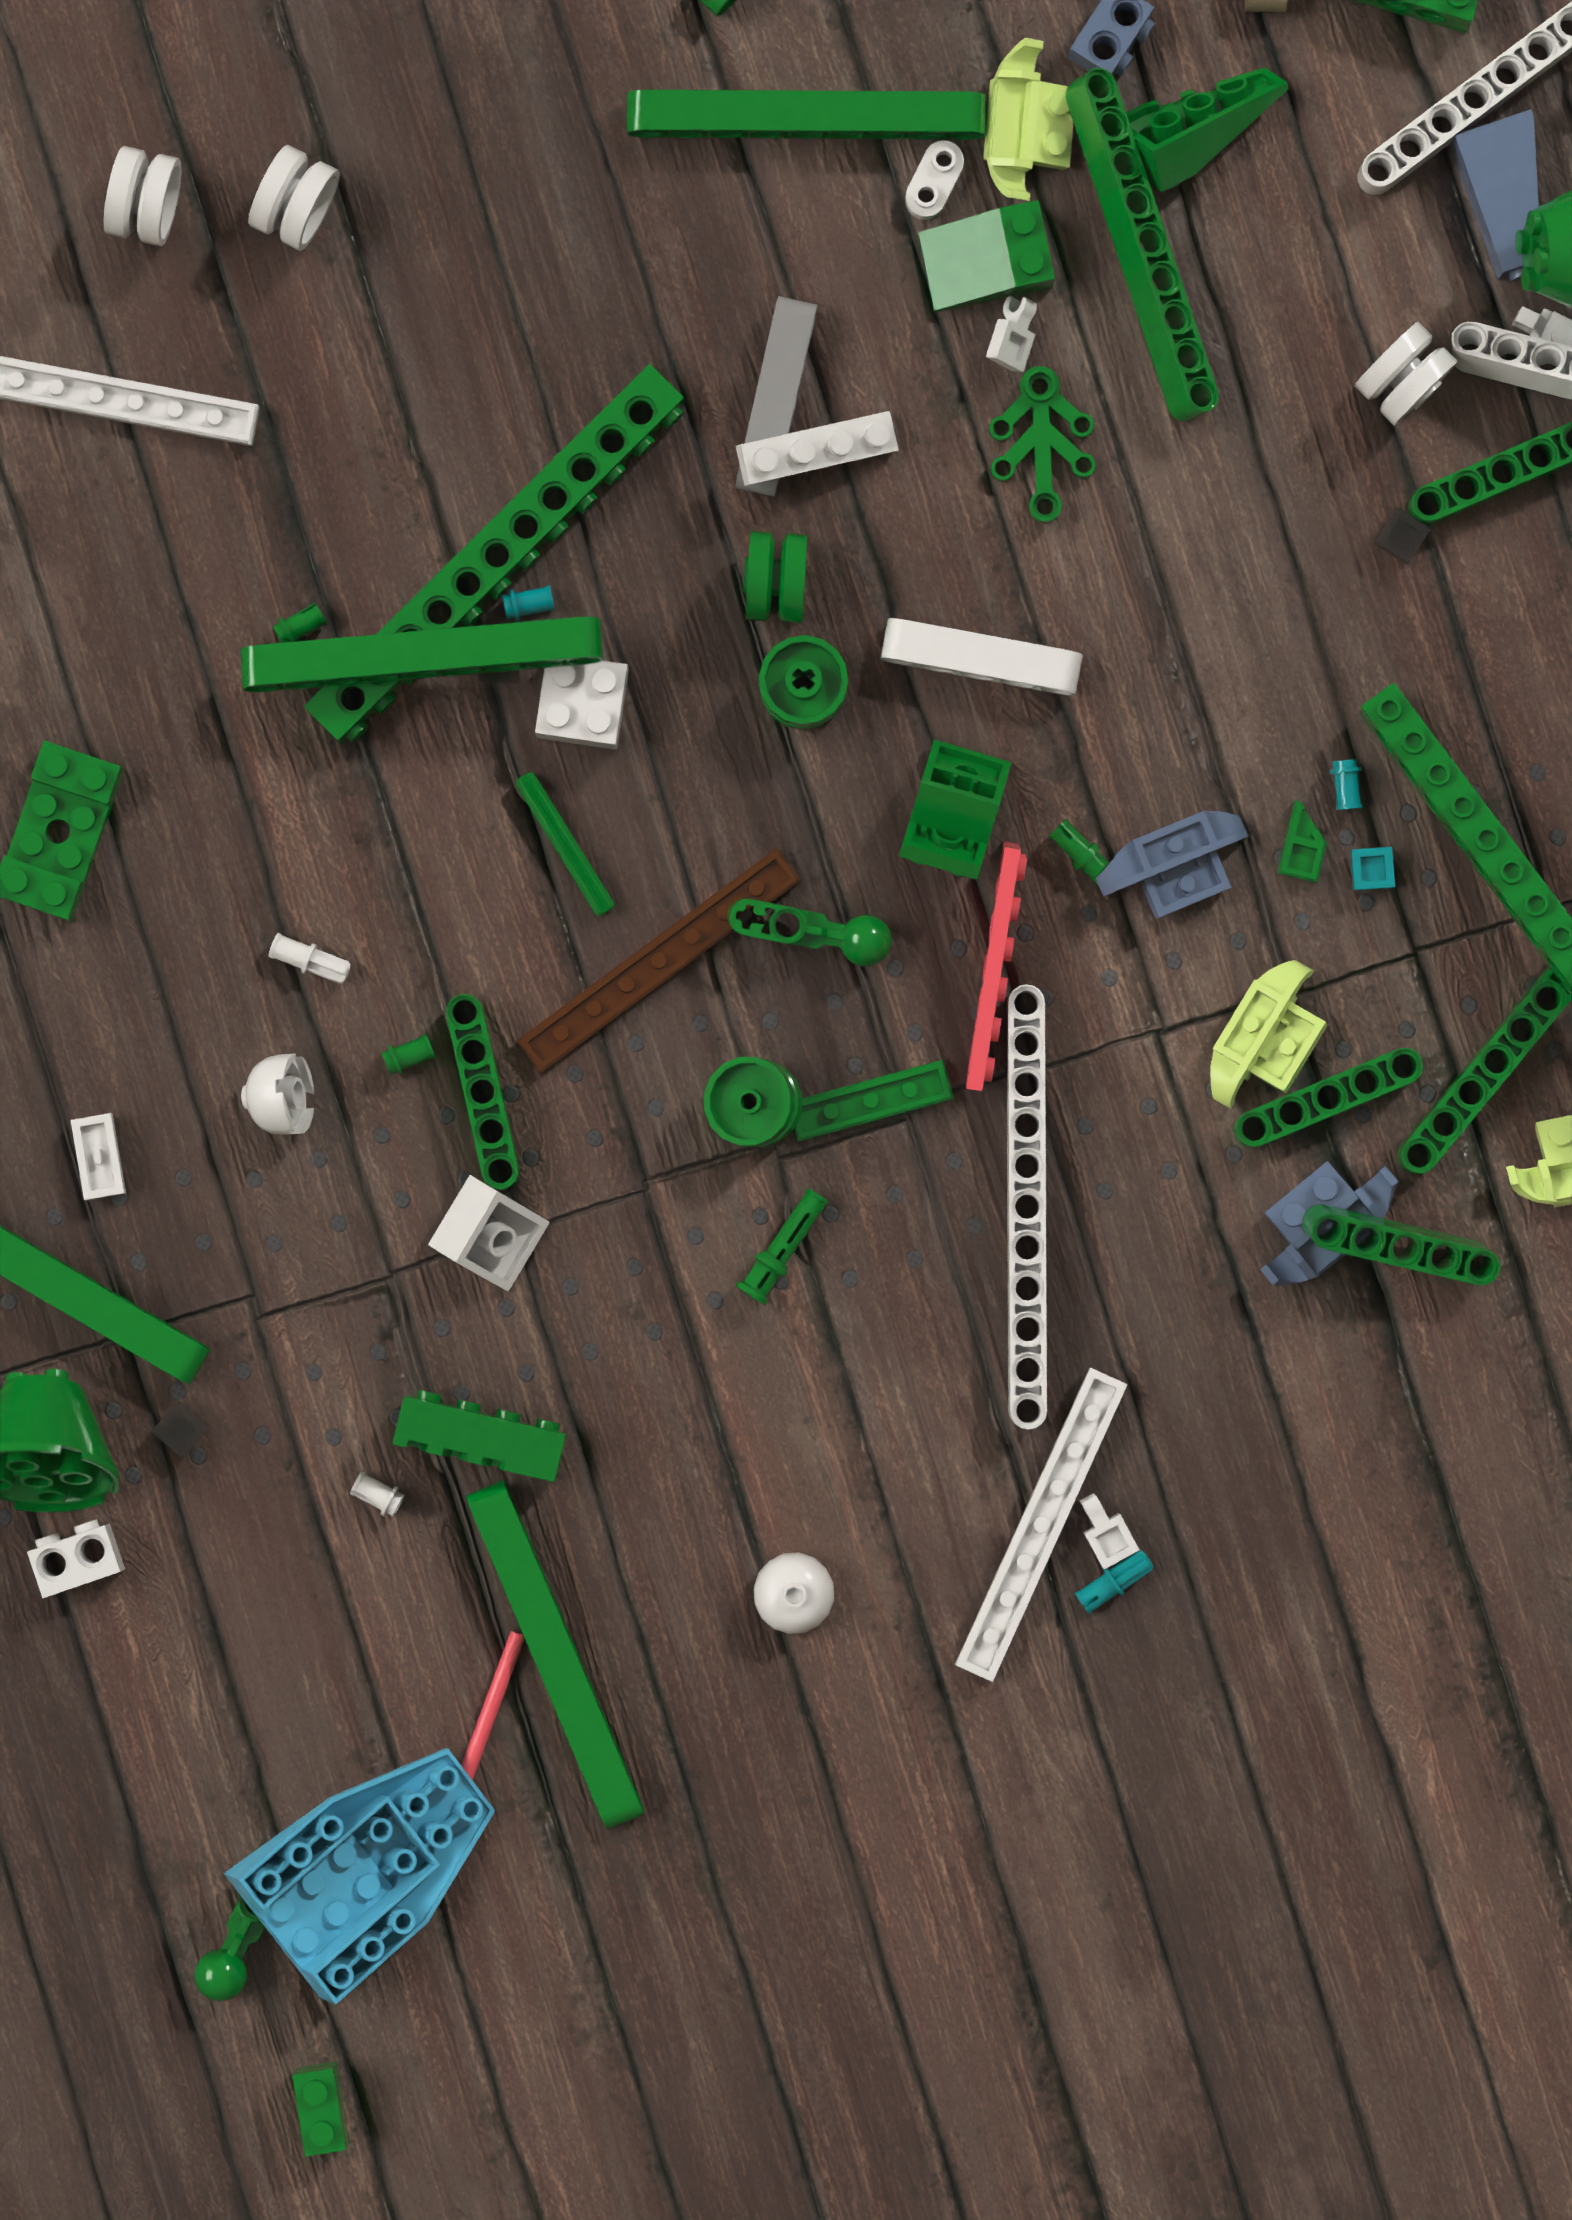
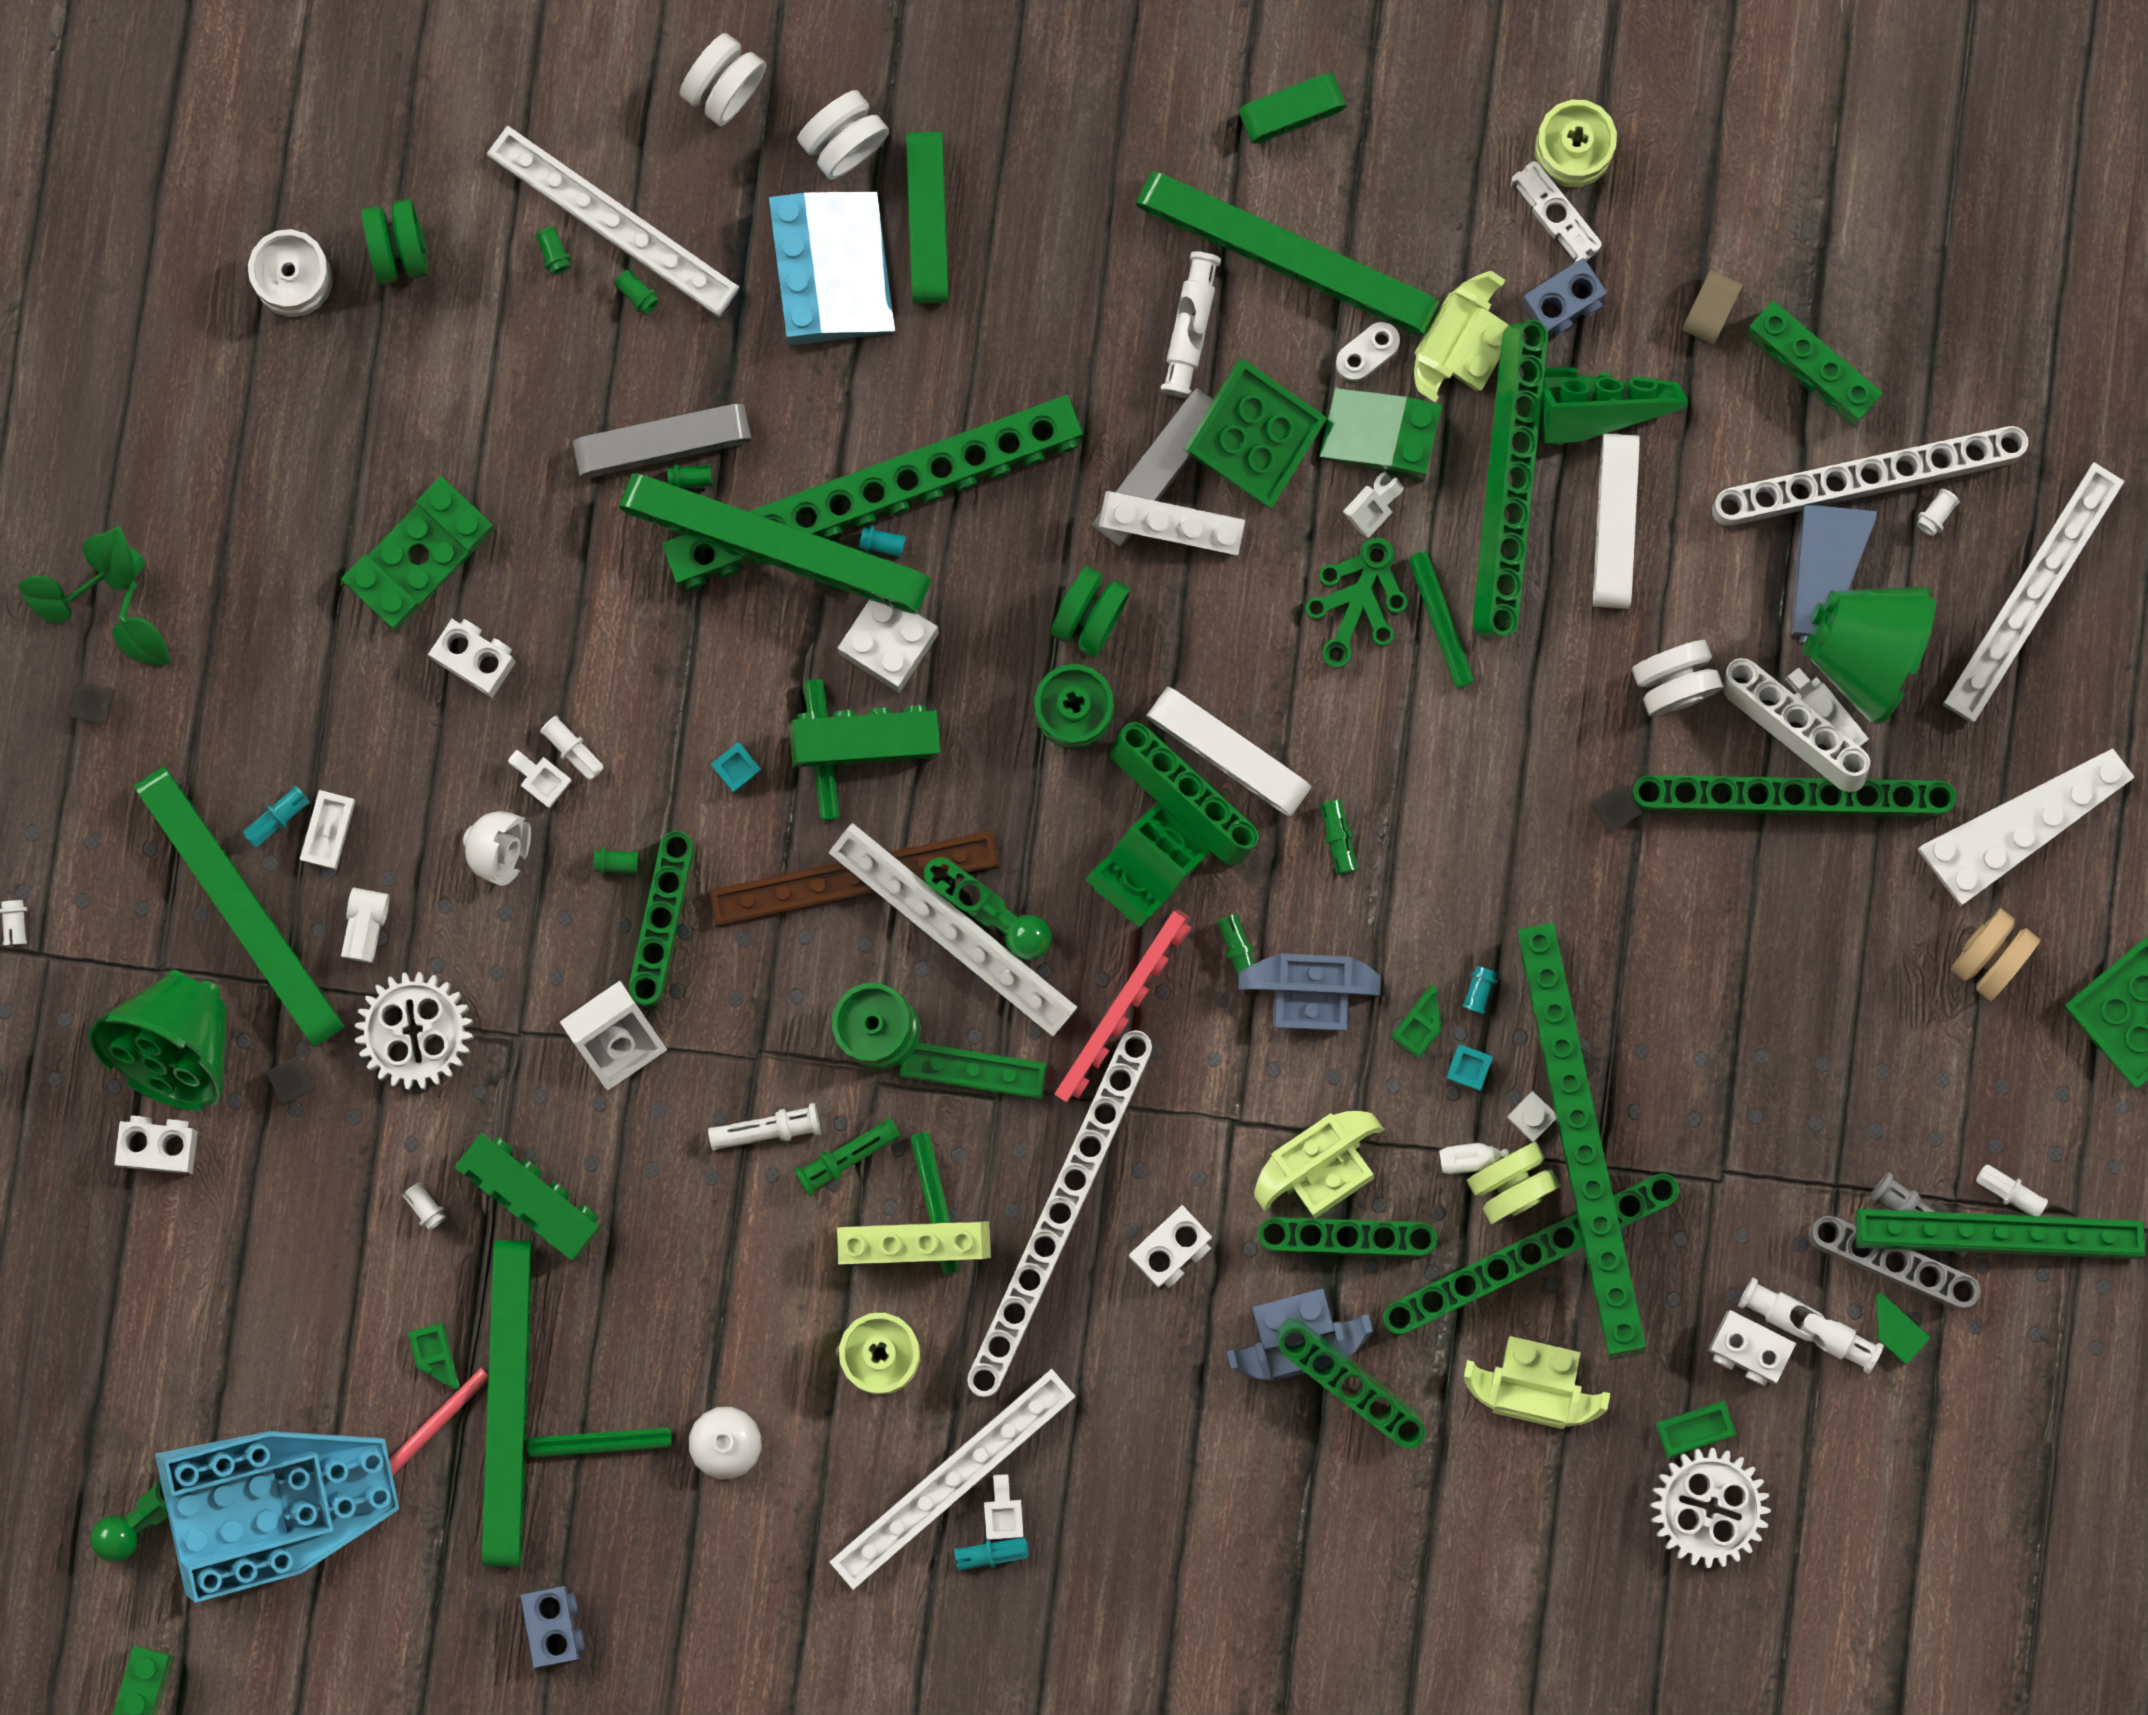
camera: 30 degrees right, 5 degrees down
(38, 1167) = (276, 816): none -> teal axle
(49, 454) = (556, 259): none -> green pin
(156, 458) = (643, 298): none -> green pin
(161, 921) = (468, 663): none -> white brick
(179, 1226) = (366, 914): none -> white piece
(253, 600) = (662, 440): none -> light grey beam
(253, 1343) = (382, 1037): none -> white gear
(295, 1005) = (542, 780): none -> white plate
(343, 340) = (831, 266): none -> slope
(419, 244) = (927, 217): none -> green beam
(457, 1638) = (434, 1354): none -> green tile
(486, 902) = (736, 767): none -> teal plate
(604, 813) = (864, 738): none -> green brick
(666, 1651) = (599, 1442): none -> green axle
(696, 1864) = (541, 1628): none -> sand blue brick
(704, 1245) = (782, 1125): none -> white pin
(742, 240) = (1185, 351): none -> white piece
(785, 967) = (952, 929): none -> white plate
(859, 316) = (1255, 433): none -> green plate
(893, 1304) = (913, 1242): none -> yellowish green brick
(894, 1253) = (932, 1189): none -> green axle
(927, 1449) = (858, 1347): none -> yellowish green wheel
(979, 728) = (1196, 803): none -> green beam
(1133, 693) = (1339, 837): none -> green pin
(1135, 422) = (1441, 619): none -> green axle
(1145, 1185) = (1164, 1241): none -> white brick
(1268, 239) = (1616, 521): none -> white beam
(1413, 960) = (1469, 1158): none -> white piece
(1457, 889) = (1532, 1116): none -> white plate
(1477, 969) = (1514, 1184): none -> yellowish green wheel

